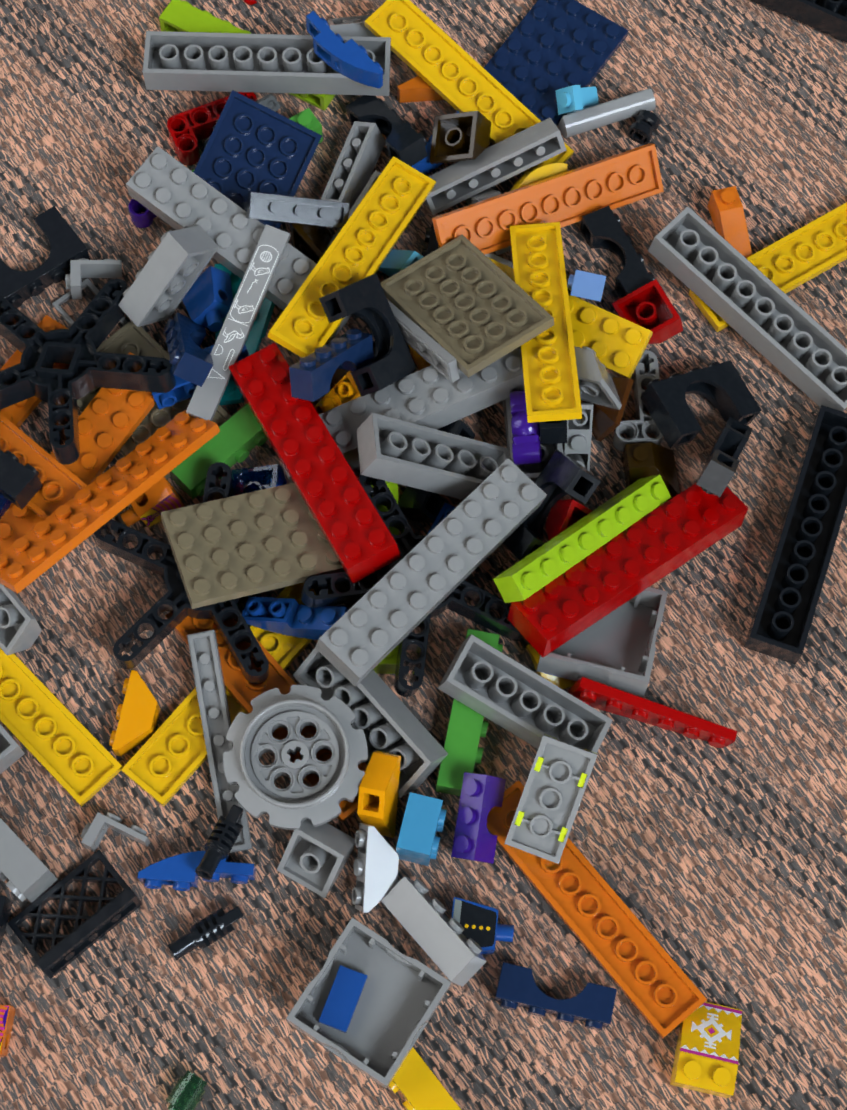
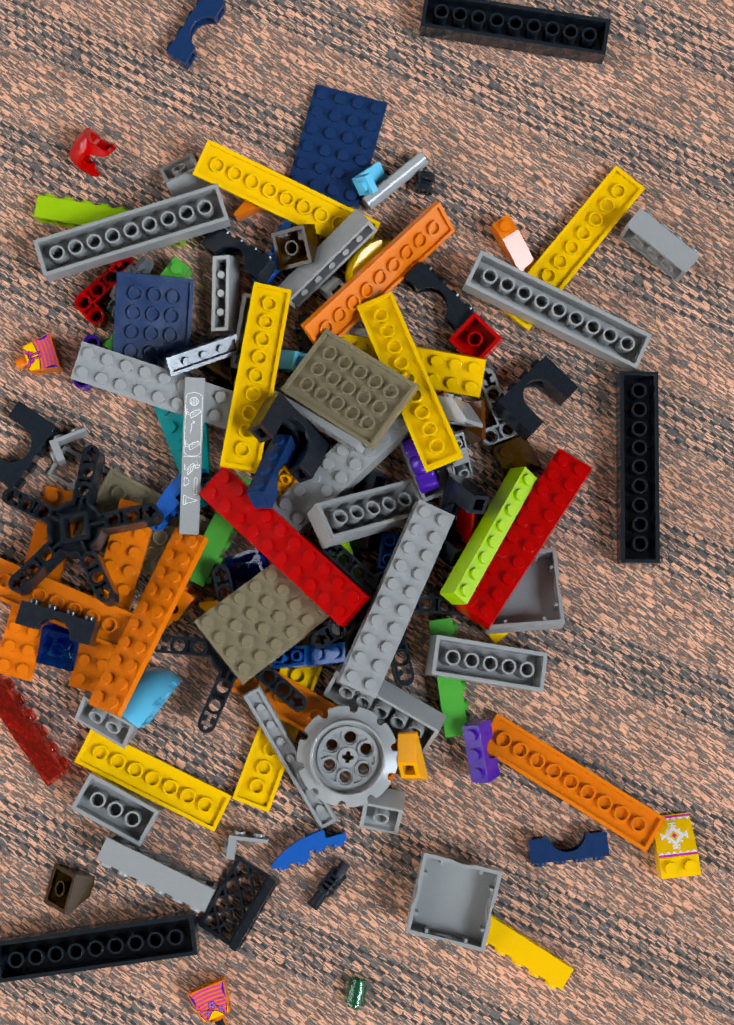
camera: 20 degrees left, 15 degrees up
(66, 598) = (150, 695): none -> medium azure brick
(102, 170) = (40, 356): none -> torso
(136, 716) = (227, 757): light orange slope -> none
(168, 275) = (126, 434): light grey brick -> none
(184, 349) = (168, 499): dark blue arch -> none
(210, 298) = (161, 437): blue torso -> none
(220, 842) = (318, 828): black hinge -> none
(343, 999) = (435, 903): blue tile -> none
(344, 57) = (193, 216): blue slope -> none
(374, 868) = (424, 808): slope -> none
(419, 828) = (445, 772): dark azure brick -> none
(434, 931) = (478, 837): light grey brick -> none
(481, 924) = (502, 822): torso -> none
(551, 799) = (526, 726): light grey piece -> none
(586, 285) = (427, 335): medium blue brick -> none
(643, 710) = (565, 637): red wing -> none
(723, 457) = (564, 448): black arch -> none

